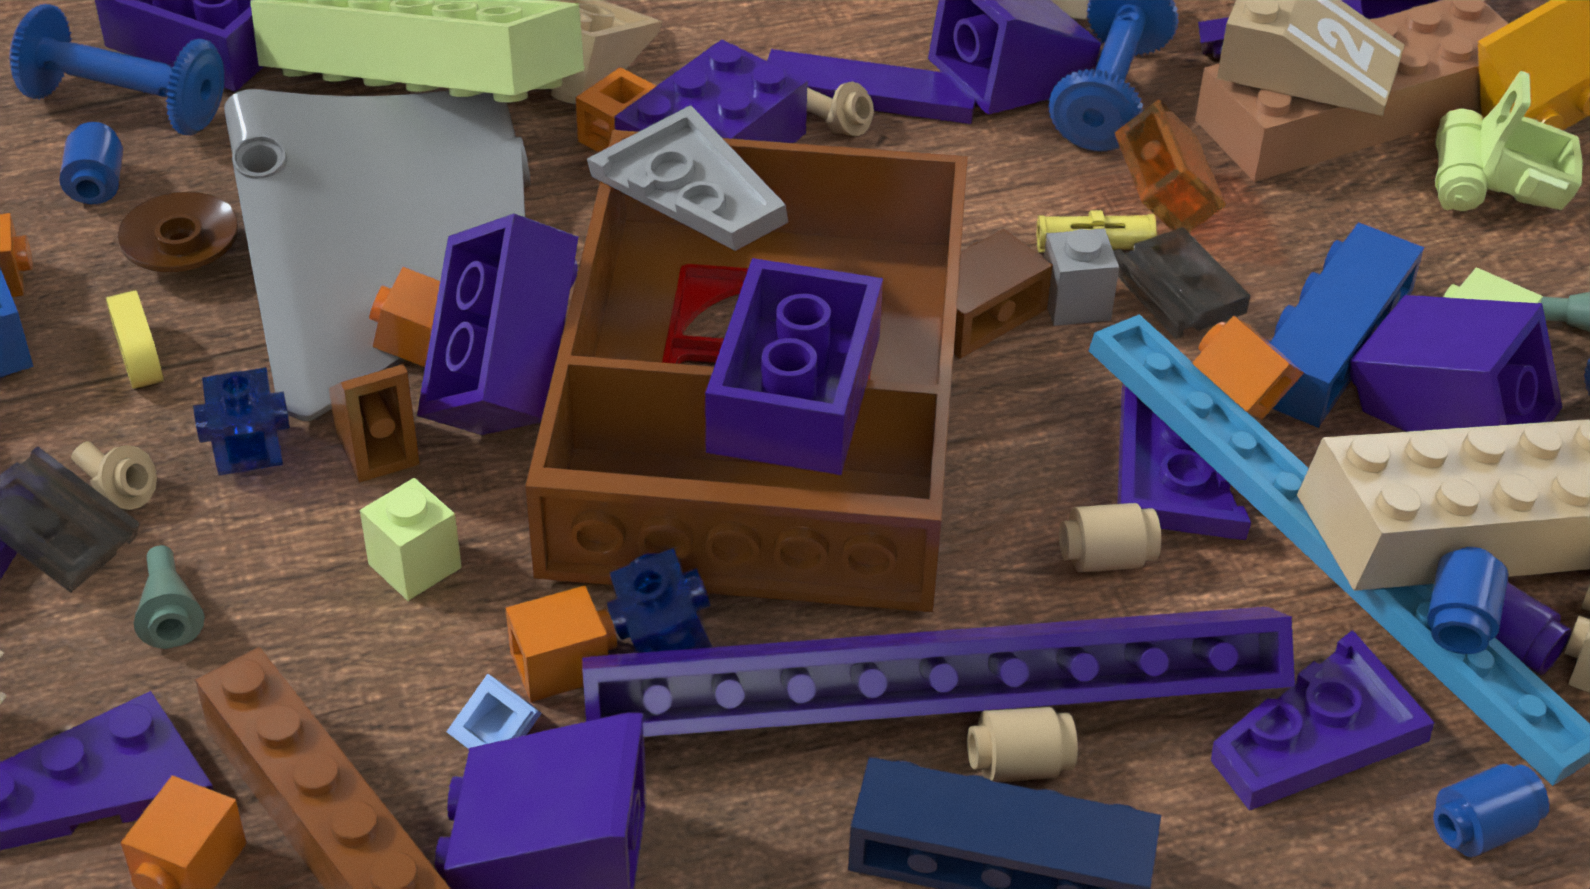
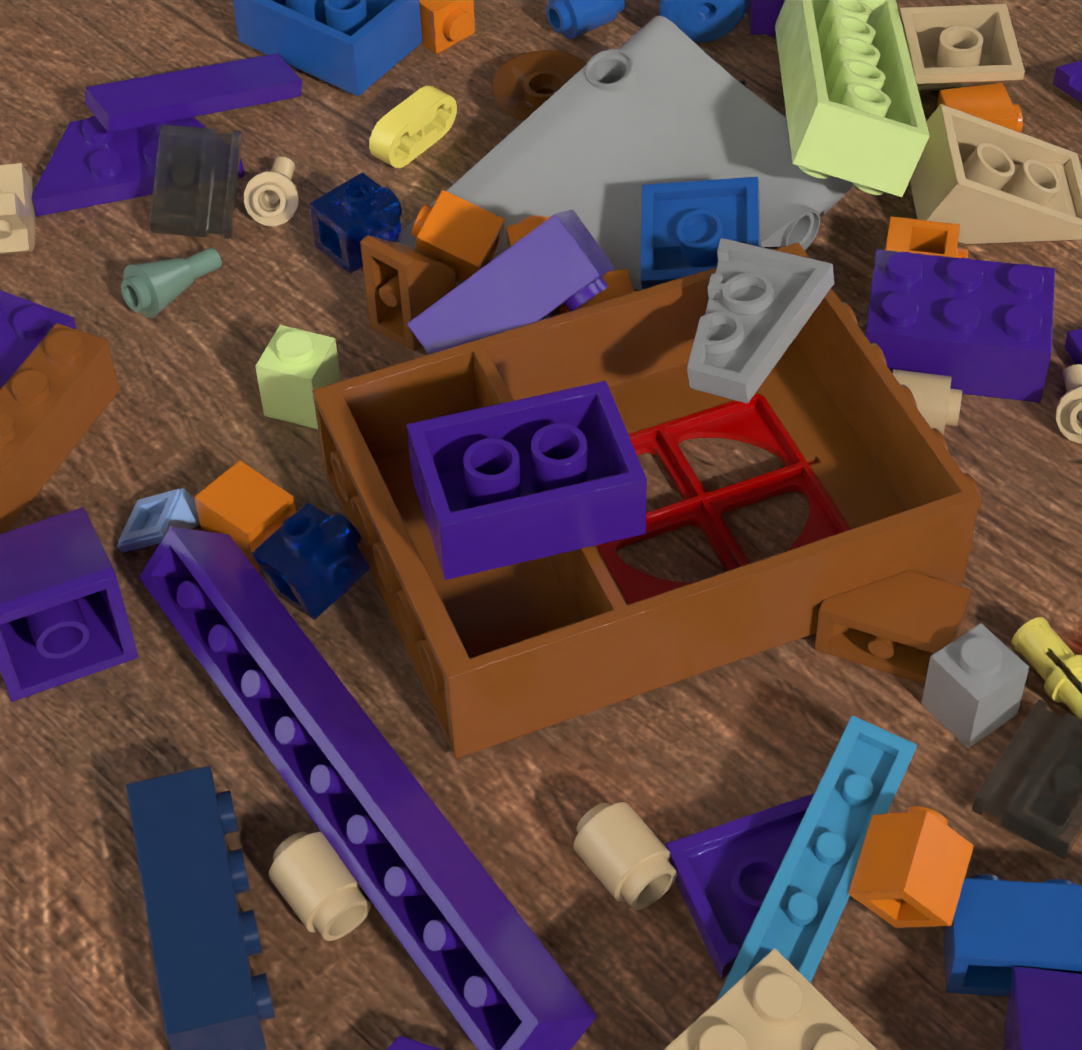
camera: 65 degrees right, 5 degrees up
(344, 349) = (458, 234): none -> orange brick
(509, 179) = (688, 220): none -> blue plate

